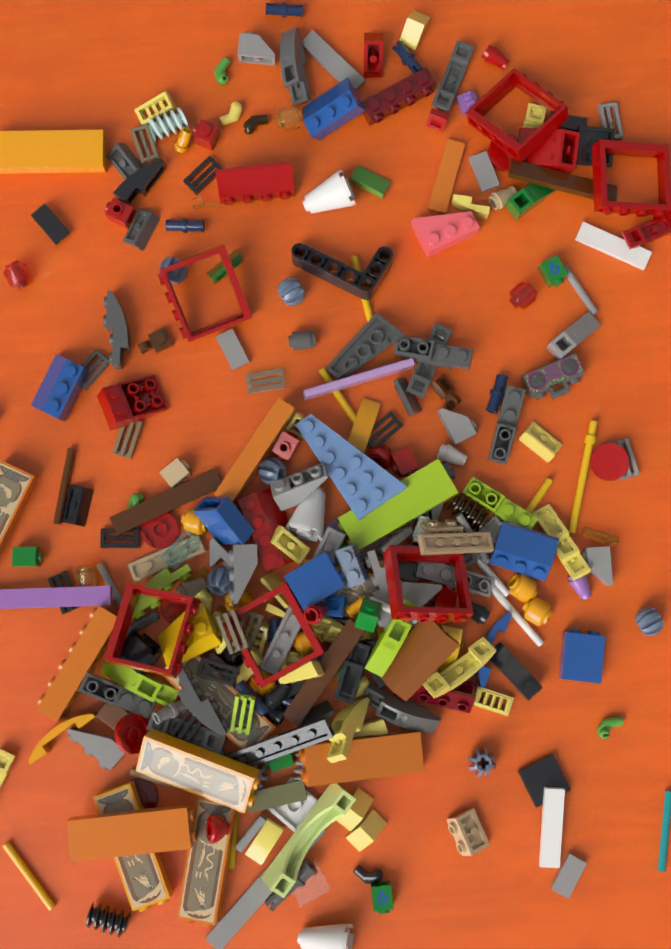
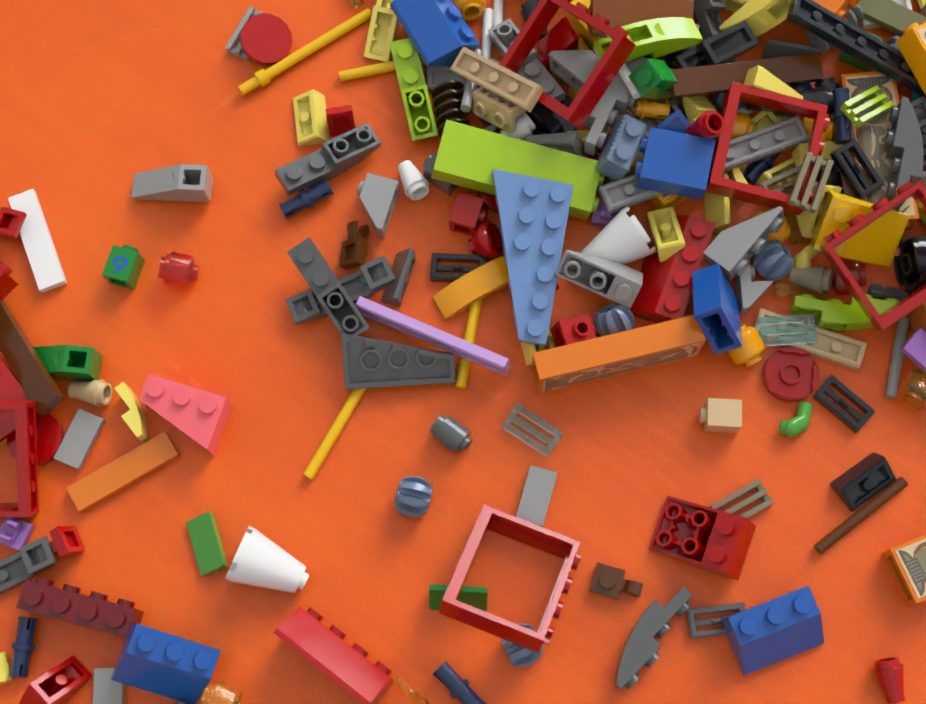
camera: 130 degrees left, 10 degrees down
(165, 502) = (760, 393): reddish brown tile -> none
(344, 271) = (336, 464): black beam -> none
(522, 453) = (340, 120): none -> red tile
(560, 372) = (234, 167): dark grey piece -> none
(580, 291) = (118, 222): light grey bar -> none

